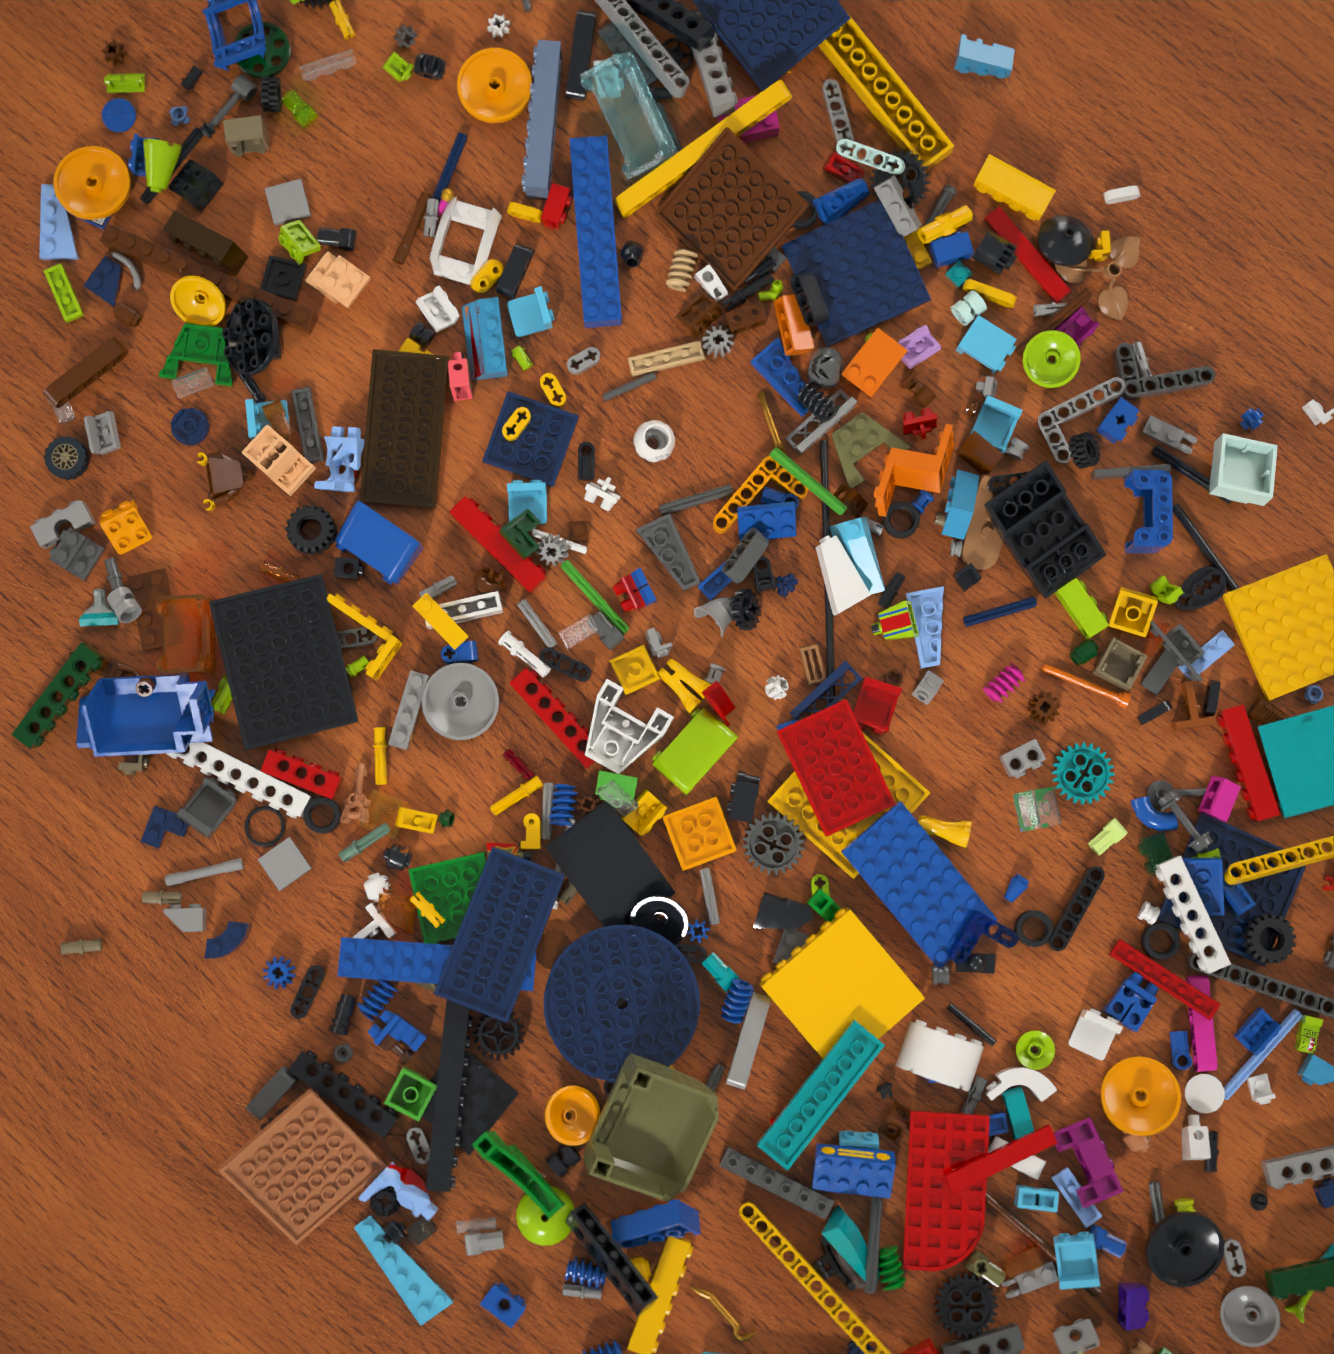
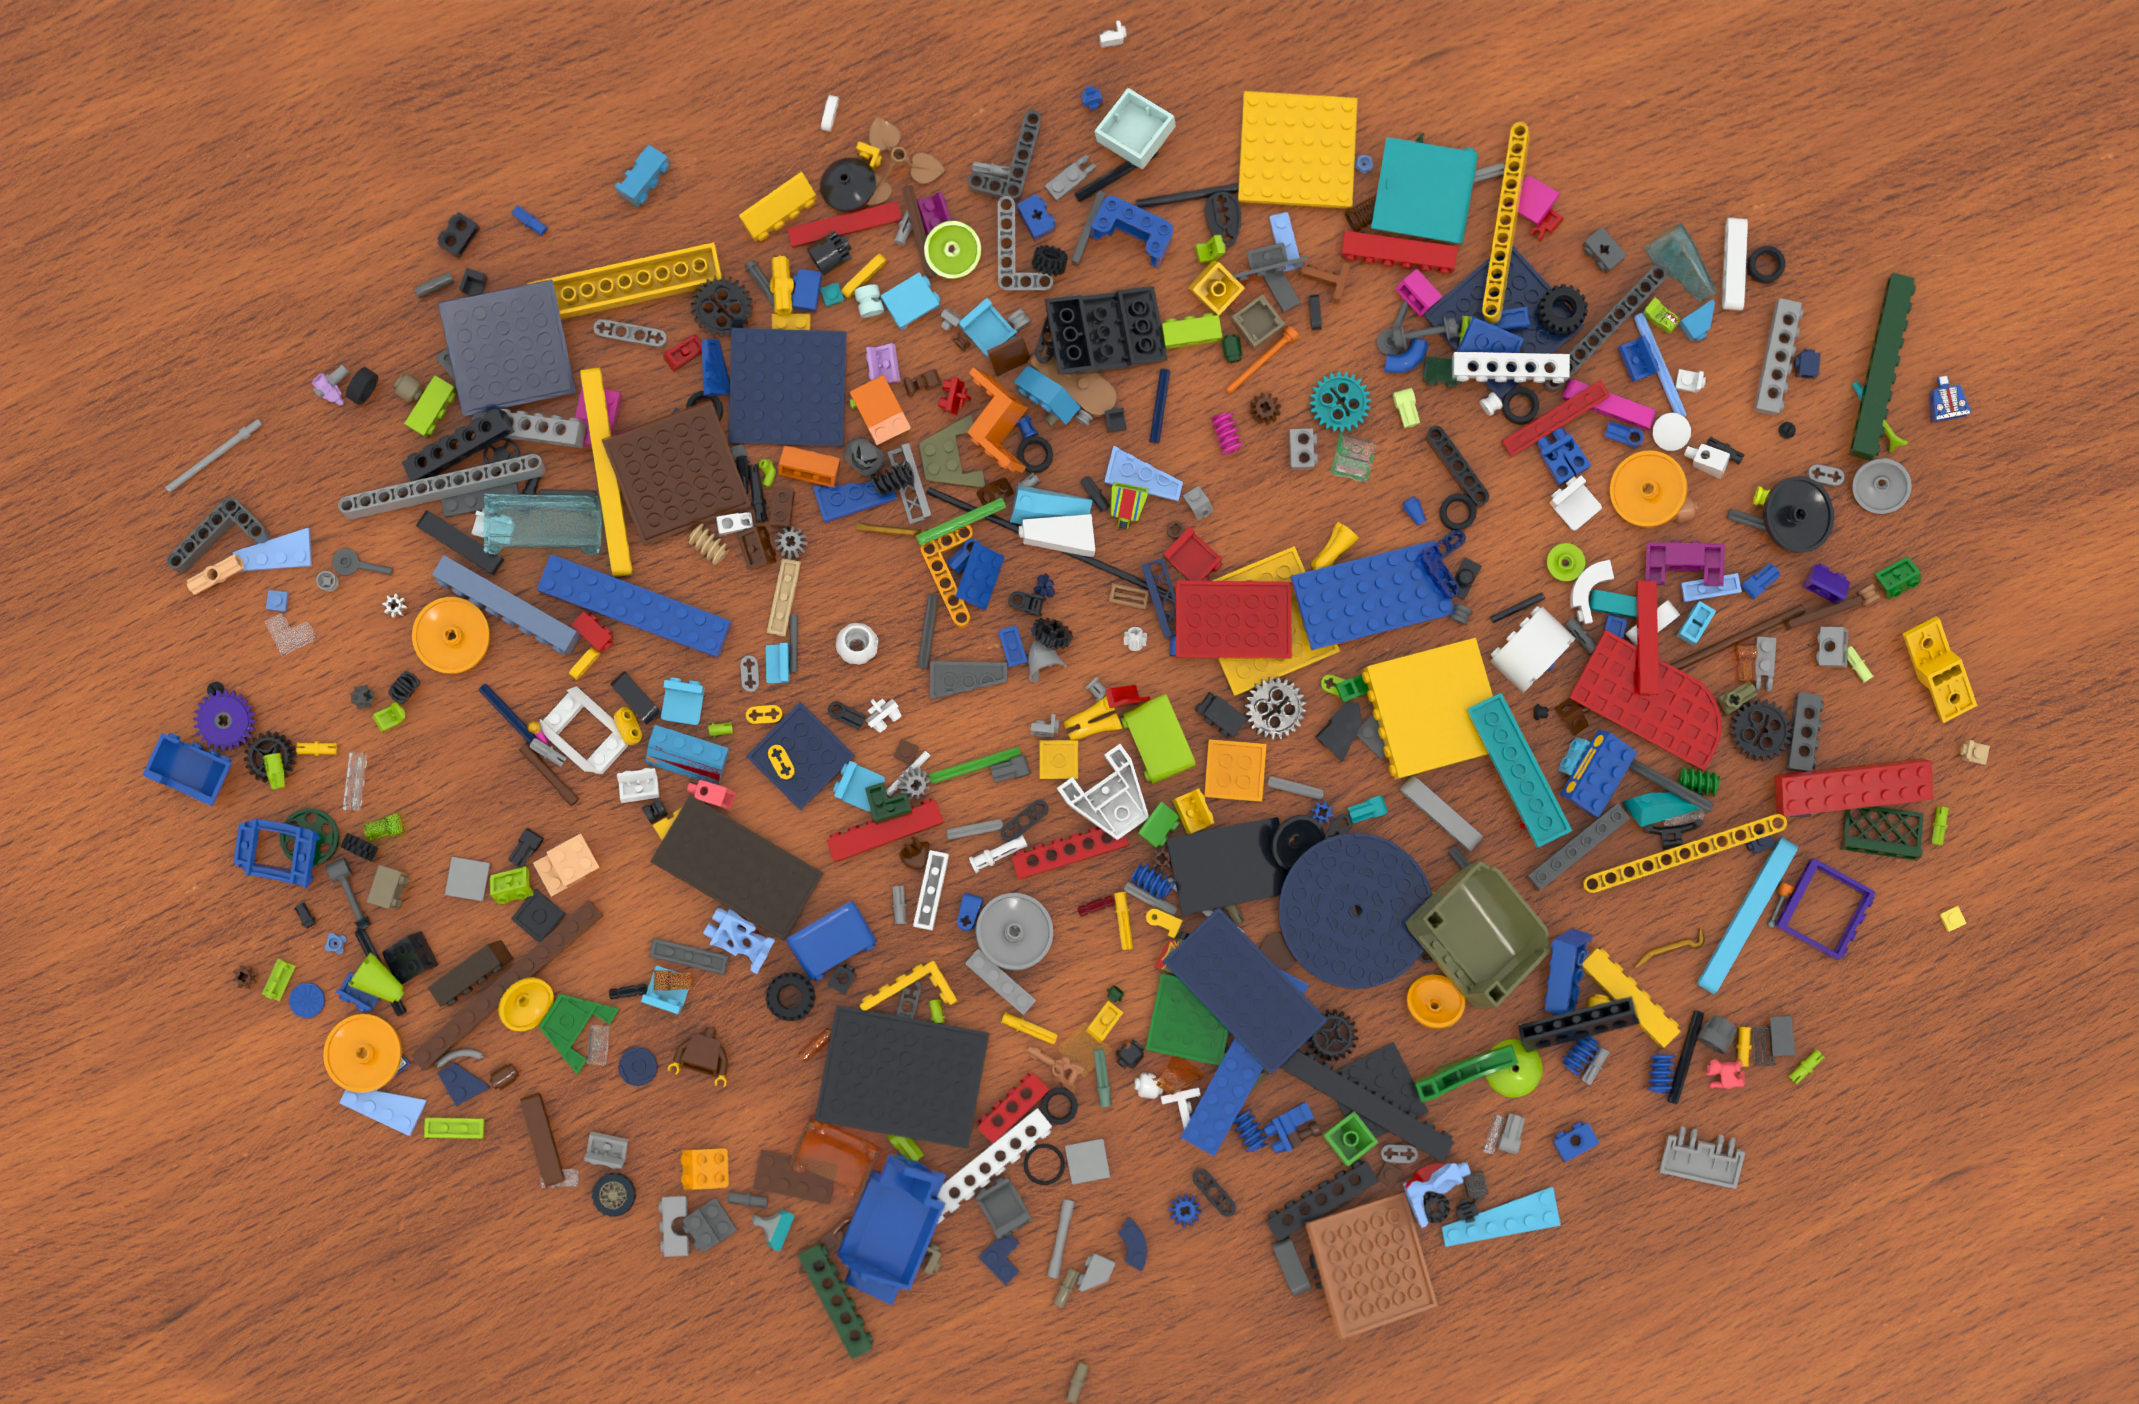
camera: 65 degrees left, 0 degrees up
(124, 604) = (779, 1200): light grey wheel -> none
(145, 681) = (871, 1215): bush -> none
(251, 336) = (584, 969): black bracket -> none
(278, 460) = (711, 996): light nougat bracket -> none
(338, 1053) = (1279, 1185): dark grey plate -> none
(343, 1014) = (1248, 1168): black axle -> none
(427, 910) = (1191, 1048): yellow pin -> none
(440, 621) = (934, 914): yellow slope -> none
(563, 1159) = (1471, 1028): black wheel -> none
(578, 631) = (1000, 794): clear plate -> none
(604, 381) = (777, 663): none -> medium azure panel
(617, 798) = (1170, 828): clear plate -> none
(632, 254) = (671, 582): black rock -> none
(637, 589) = (995, 728): red hips -> none
(738, 1001) = (1401, 806): blue piece -> none
(745, 555) = (1002, 610): dark grey beam -> none
(809, 298) = (793, 440): black beam -> none
(870, 156) = (687, 323): light aqua beam -> none
(902, 216) = (734, 322): light grey arch -> none
(1076, 1260) = (1765, 614): medium azure panel -> none
(1211, 698) = (1325, 255): black beam -> none

